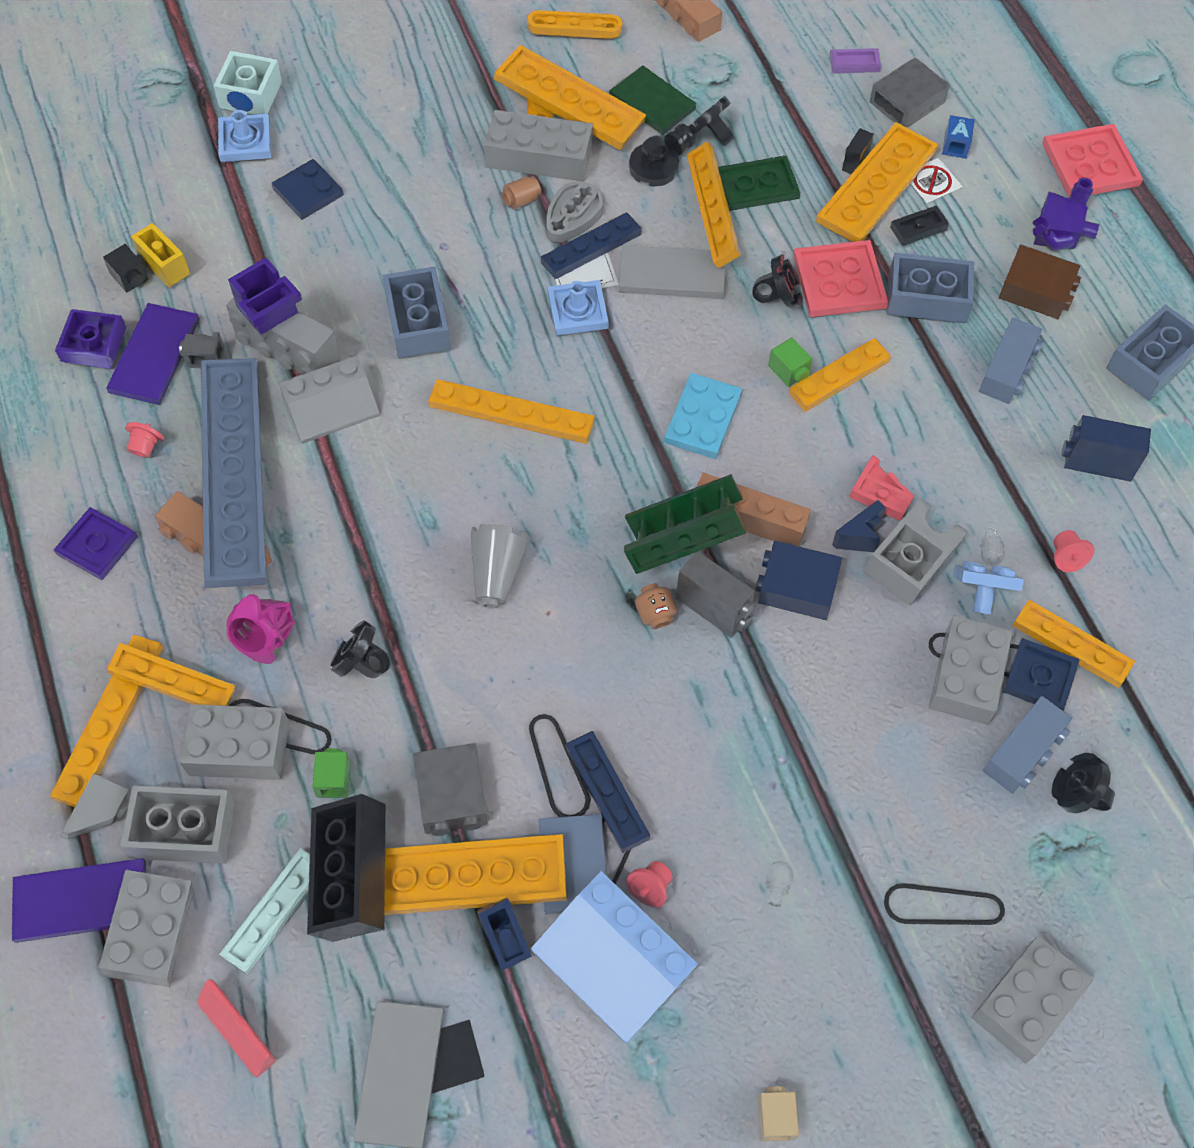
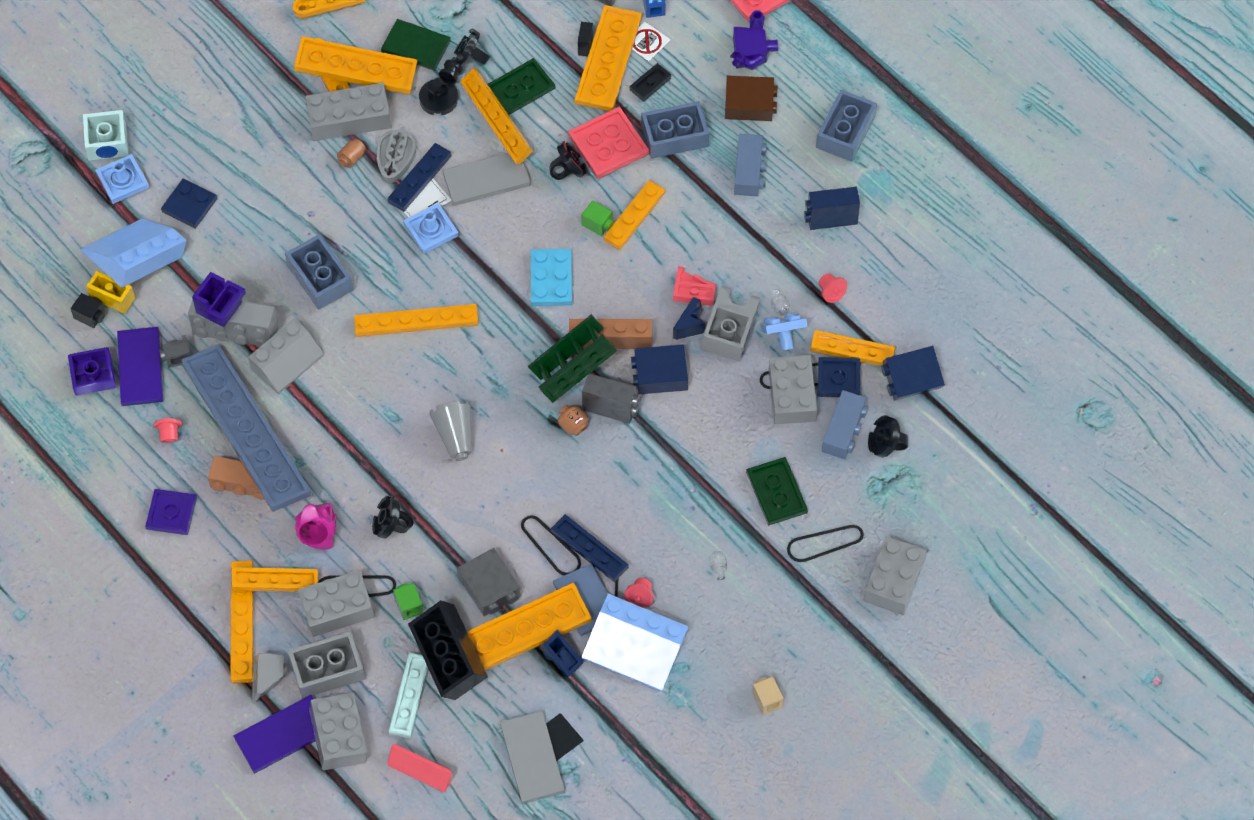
camera: 20 degrees left, 0 degrees up
(212, 218) = (136, 251): none -> light blue slope
(899, 805) = (776, 491): none -> dark green tile
(1150, 706) = (912, 373): none -> dark blue brick

